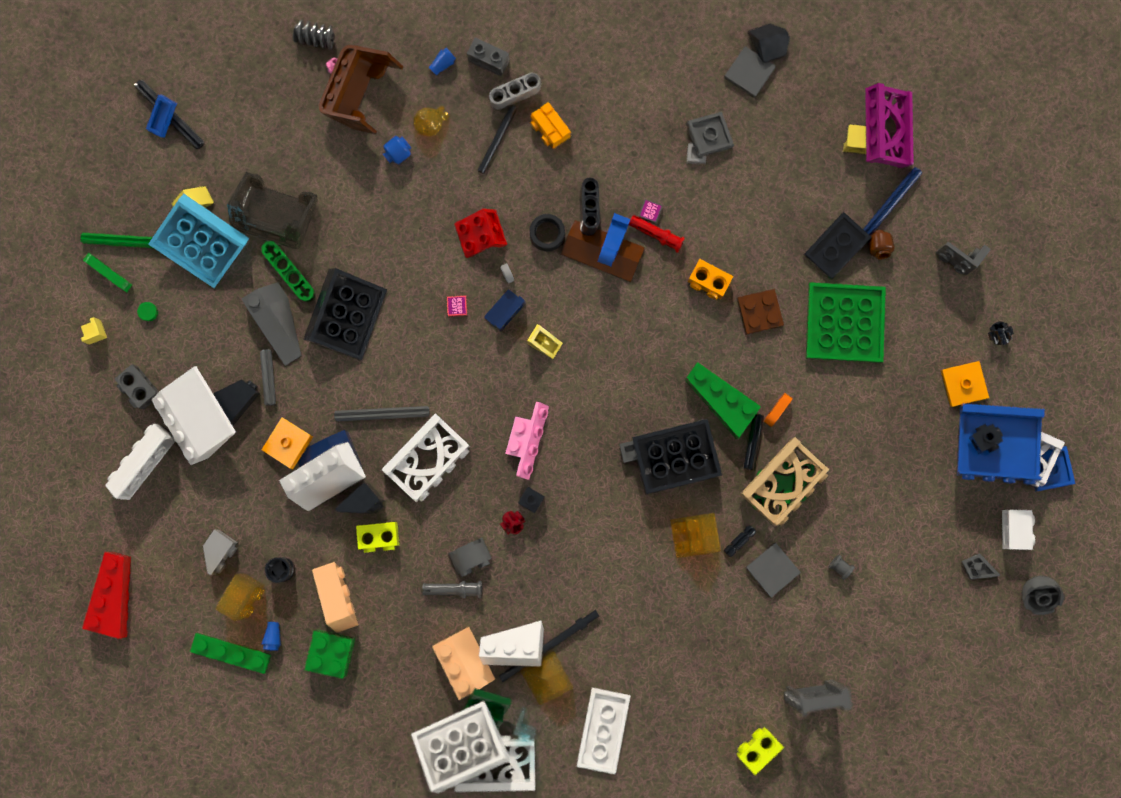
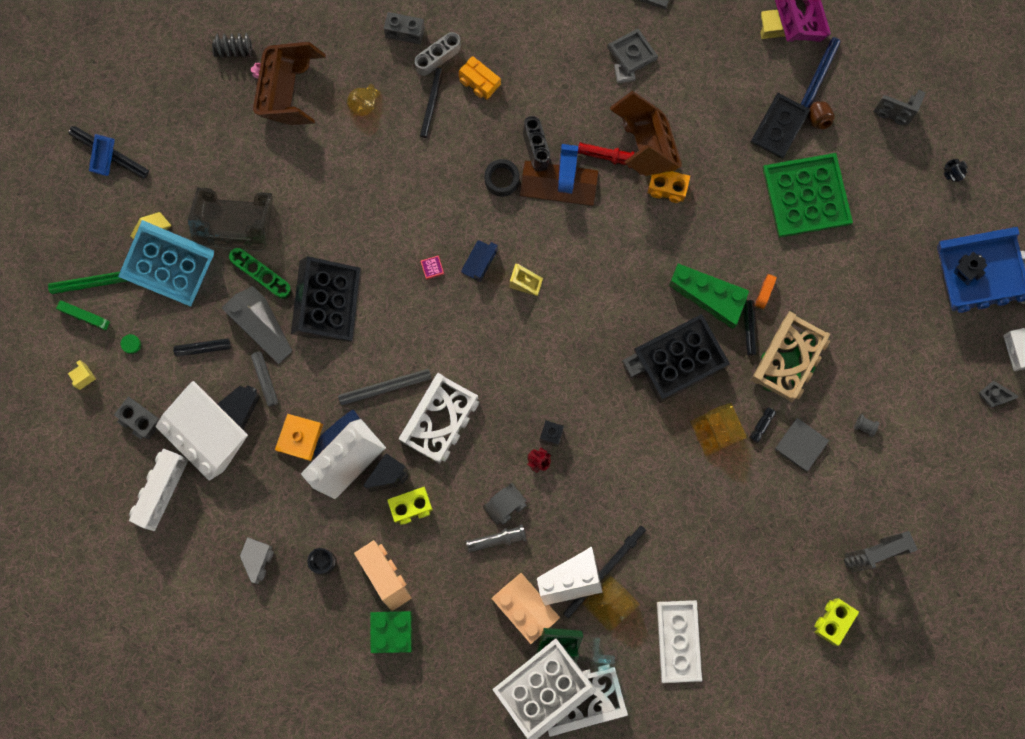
camera: 15 degrees left, 5 degrees down
(110, 597) = (158, 630): red wedge -> none
(214, 331) = (202, 347): none -> black axle
(230, 653) = (291, 657): green plate -> none
(240, 597) = (289, 597): clear yellow brick -> none
(272, 637) = (329, 631): blue cone -> none
(397, 150) = (338, 134): blue head -> none
(442, 61) = (362, 41): blue cone -> none
(480, 232) = (437, 192): red bracket -> none
(507, 273) = (473, 224): light grey tile -> none
(526, 438) = (531, 377): bright pink bracket -> none
(650, 211) = (595, 135): tile -> none
(706, 226) = (652, 134): none -> reddish brown windscreen
(760, 311) = (723, 204): reddish brown plate -> none
(965, 384) = (934, 225): light orange plate -> none

